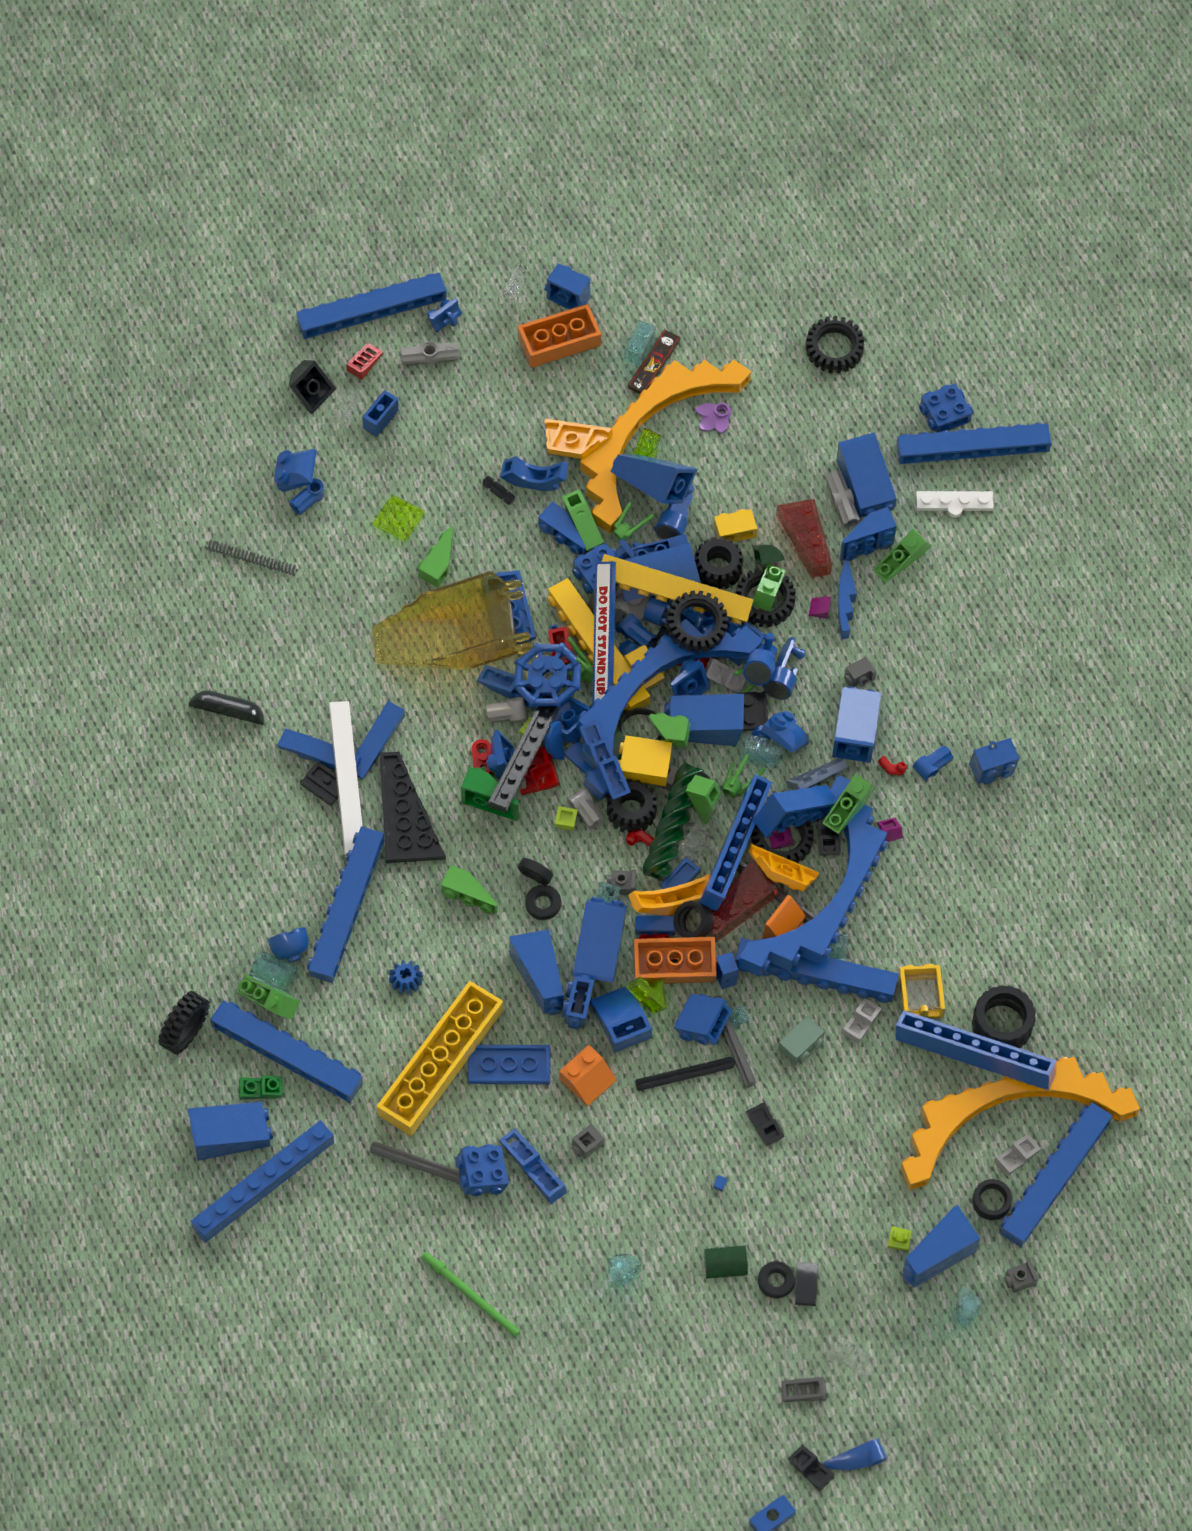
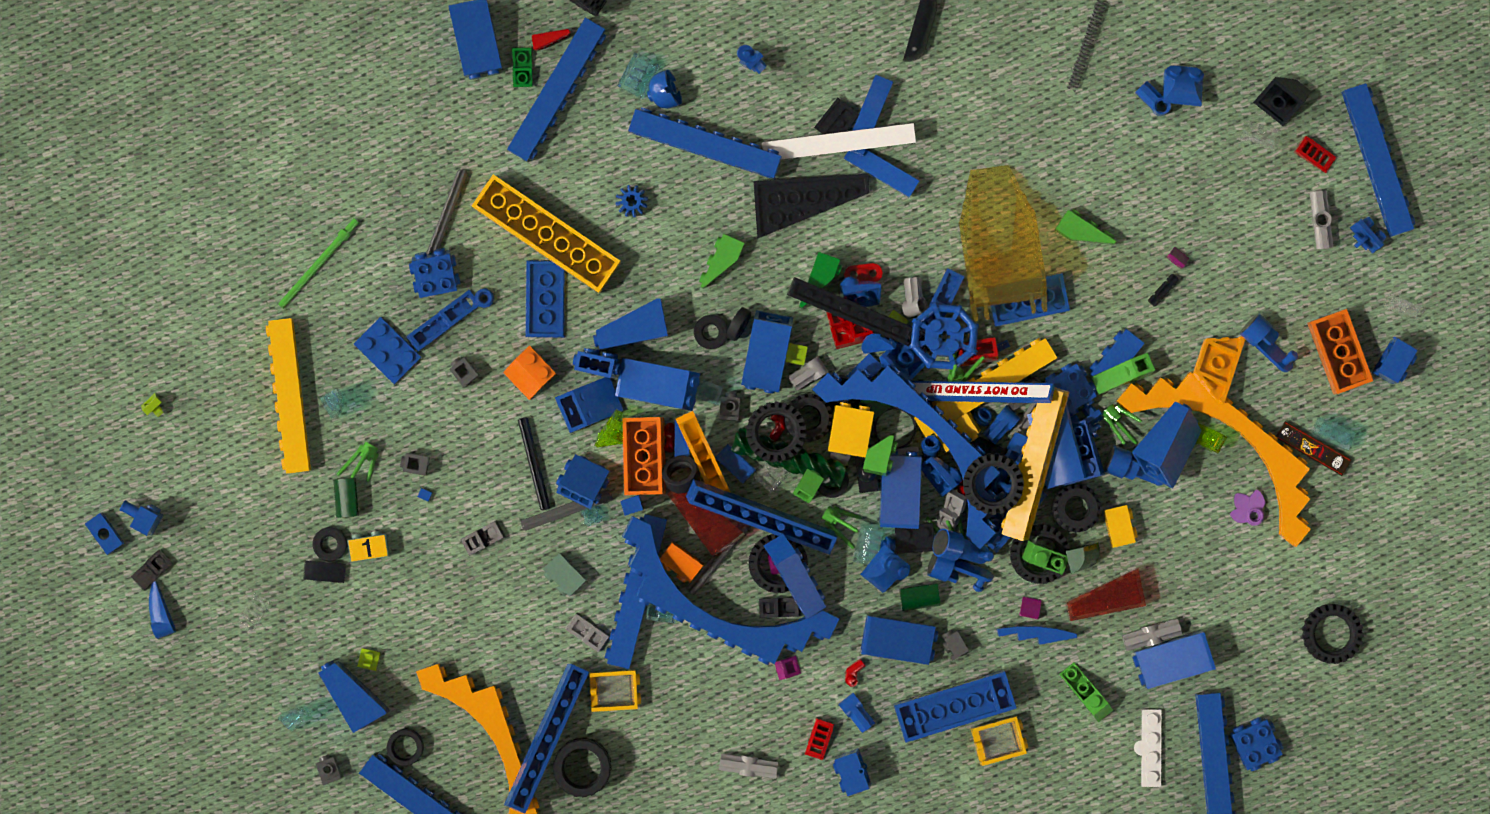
camera: 95 degrees right, 25 degrees up
(233, 1064) = (546, 39): none -> red slope
(259, 858) = (751, 58): none -> blue hips
(262, 1181) = (425, 70): blue brick -> none
(268, 996) = (609, 73): bright green slope -> none
(380, 413) = (1248, 170): blue brick -> none
(398, 517) = (1132, 190): clear neon green tile -> none
(467, 477) = (1177, 257): none -> magenta slope
(505, 1119) = (488, 293): none -> blue plate
(533, 477) = (1177, 324): blue arch -> none
(544, 401) = (1263, 336): none -> blue piece
(563, 844) = (767, 351): none -> blue slope
(565, 1222) = (387, 350): none -> blue plate
(604, 760) = (844, 390): blue slope -> none
(616, 1320) = (289, 395): none -> yellow brick
(628, 1466) = (152, 405): none -> lime tile
(641, 805) = (776, 409): none -> black tyre
(659, 692) = (930, 447): none -> blue cone
(676, 1239) = (367, 452): none -> bright green plant
(687, 1183) = (422, 468): none -> dark grey brick
(692, 755) = (866, 481): none -> black tile
(754, 1467) = (145, 518): none -> blue brick
(779, 1237) = (368, 547): none -> yellow brick
(782, 869) = (734, 562): light orange wing -> none
(812, 705) = (919, 597): none -> dark green brick
(817, 774) = (840, 596): sand blue wing -> none
(821, 1396) = (231, 580): dark grey slope -> none
(849, 803) = (801, 627): bright green slope -> none
(872, 533) = (1109, 664): blue slope -> none
(924, 669) = (954, 706): none -> blue plate
(952, 802) = (823, 723): none -> red slope
(954, 633) = (999, 740): none -> window
(993, 863) = (748, 766): none -> light grey piece
(1017, 1155) = (451, 773): light grey slope -> none

